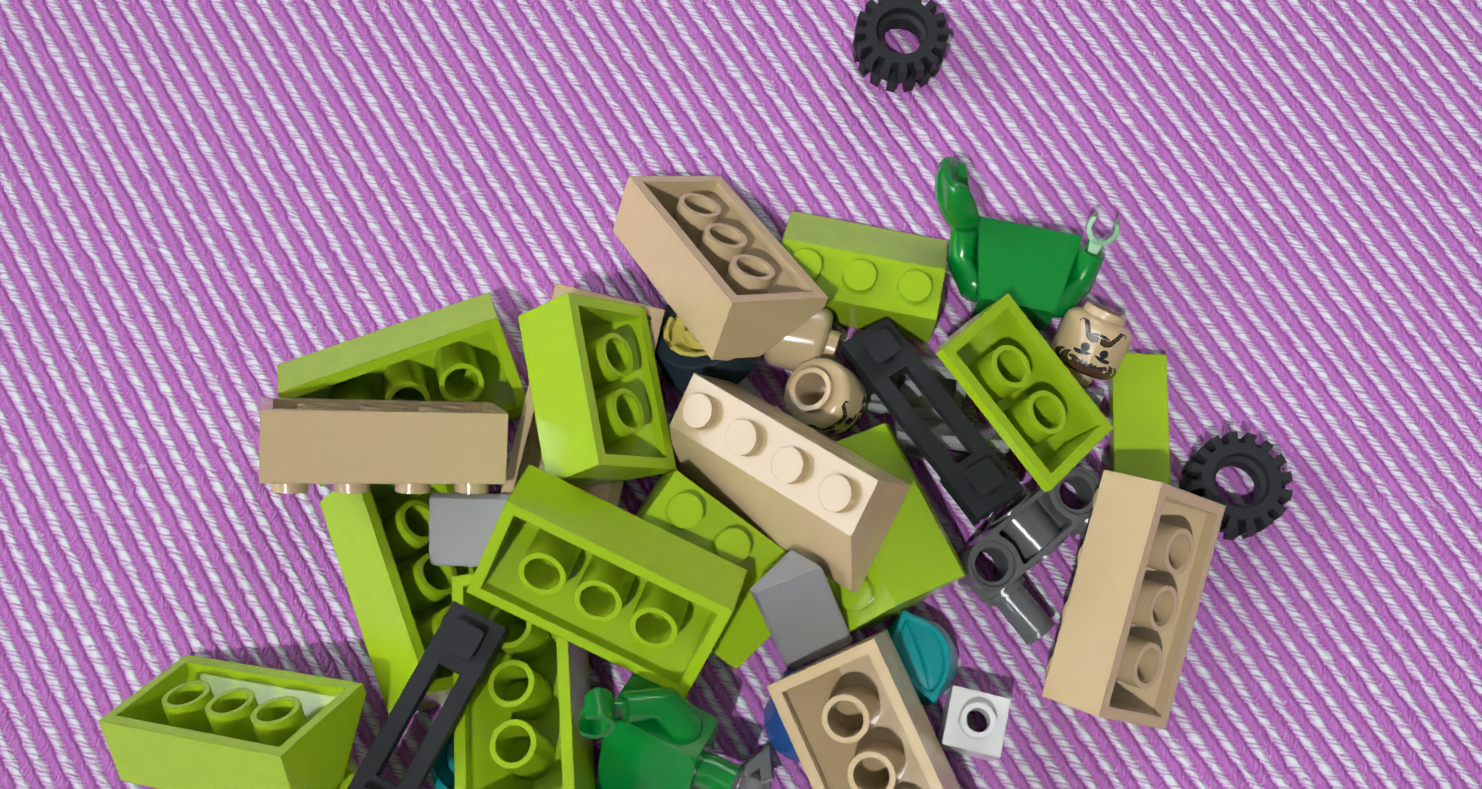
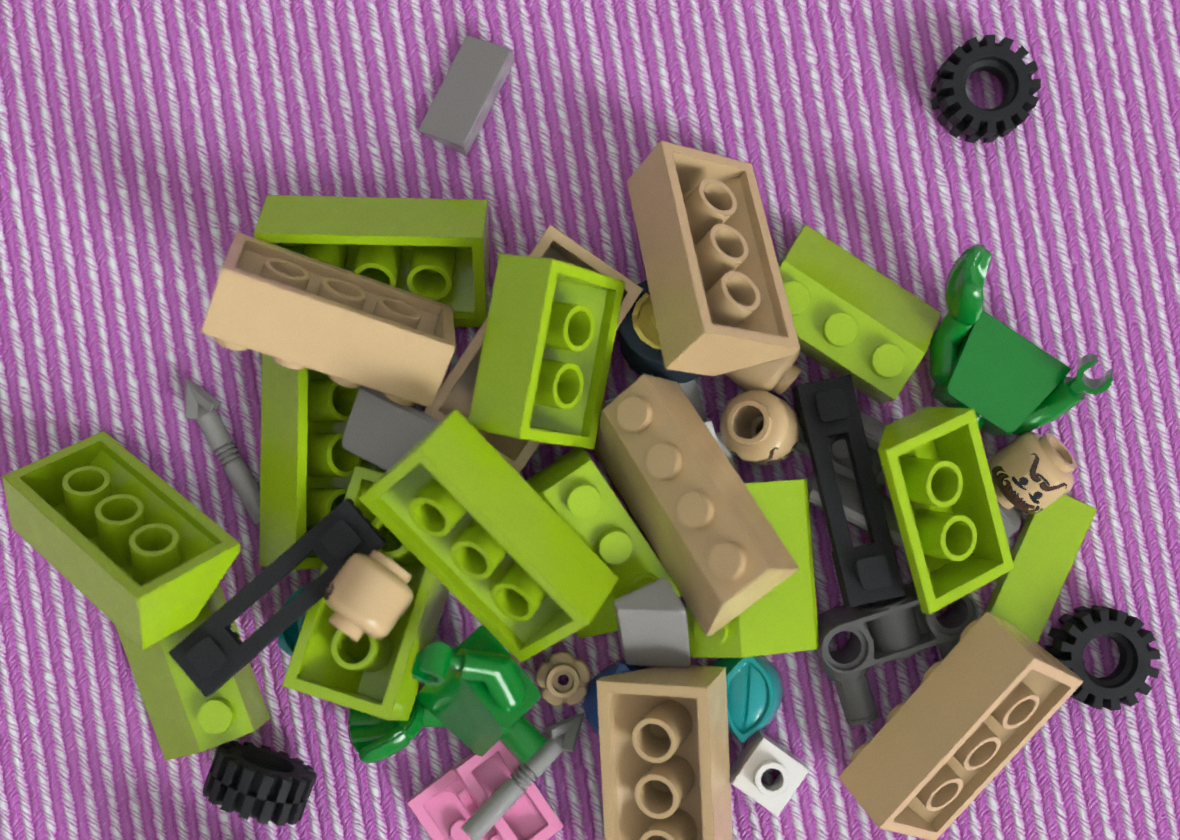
camera: 20 degrees right, 15 degrees up
(280, 592) = (202, 408): none -> light grey piece
(436, 213) = (467, 94): none -> light grey slope
(510, 679) = (368, 596): none -> tan head
(748, 703) = (563, 664): none -> tan plate

